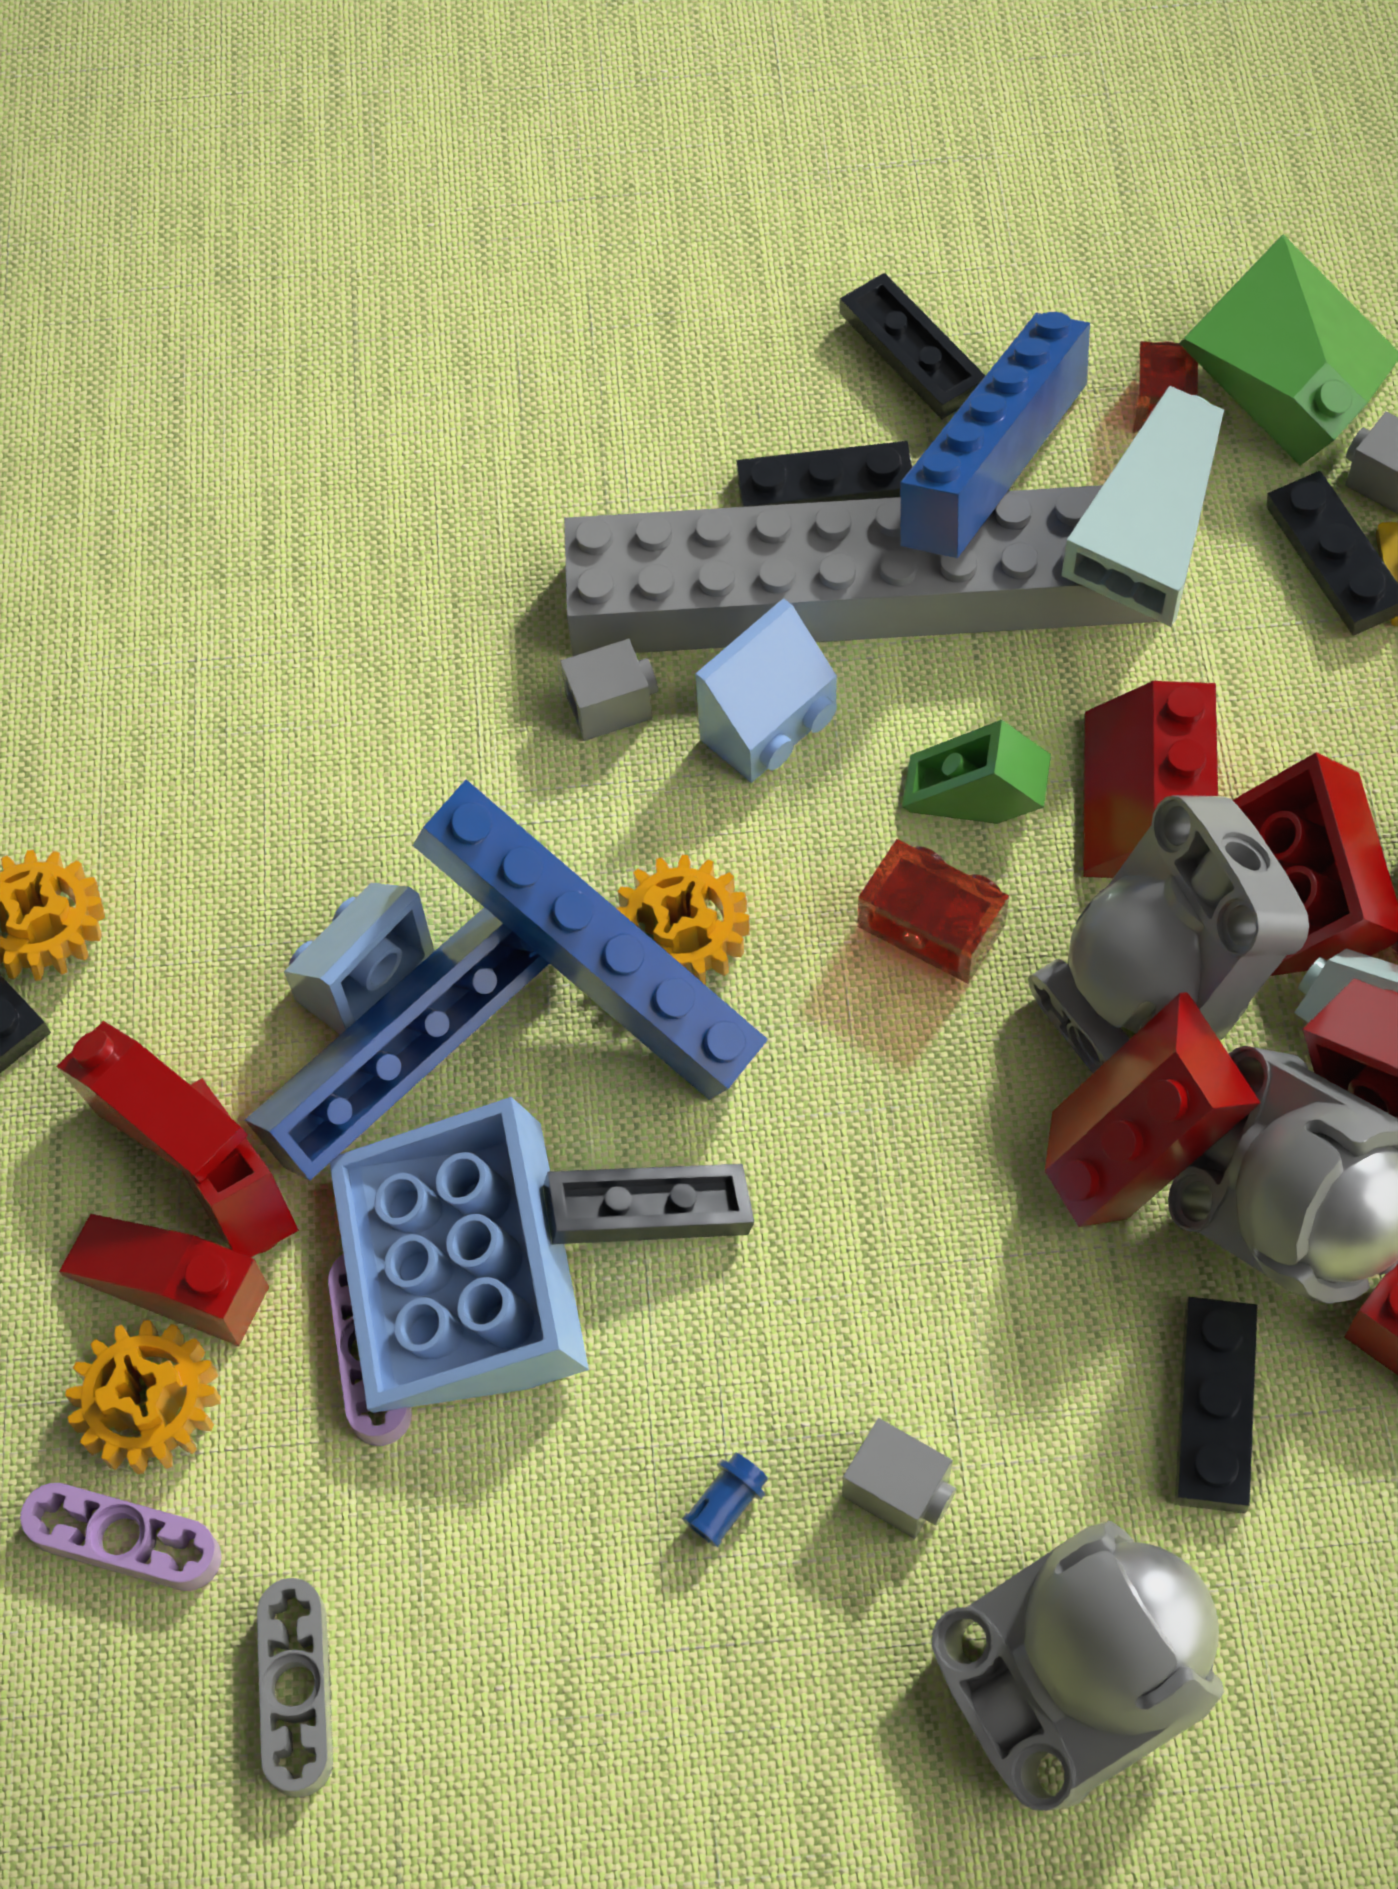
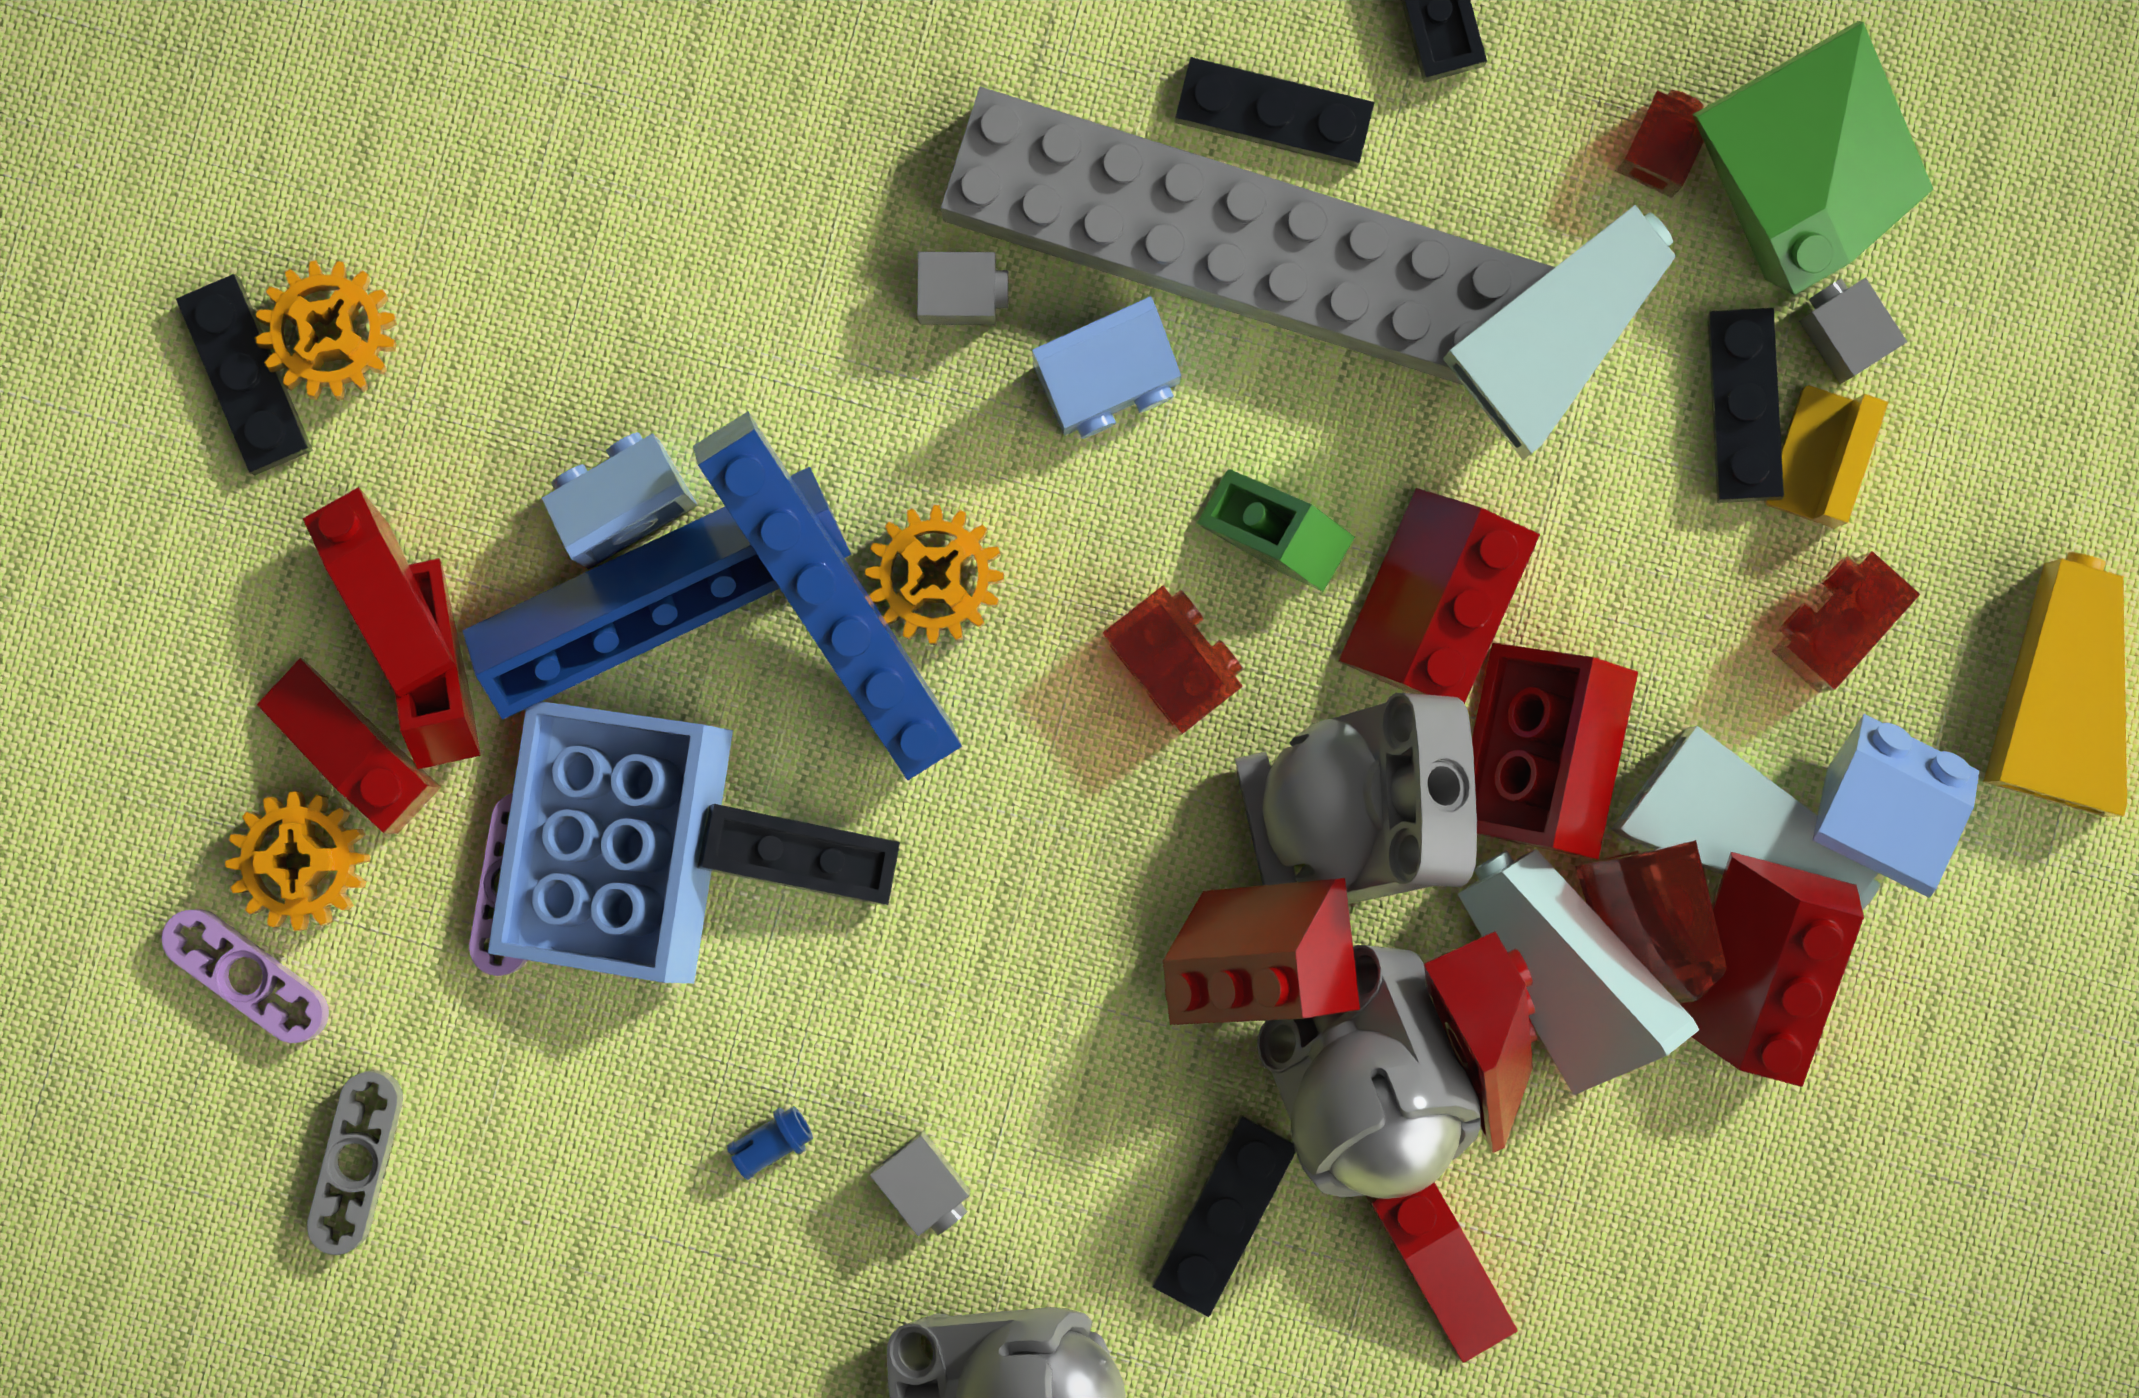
camera: 15 degrees right, 25 degrees up
(994, 435) = (1450, 166): blue brick -> none

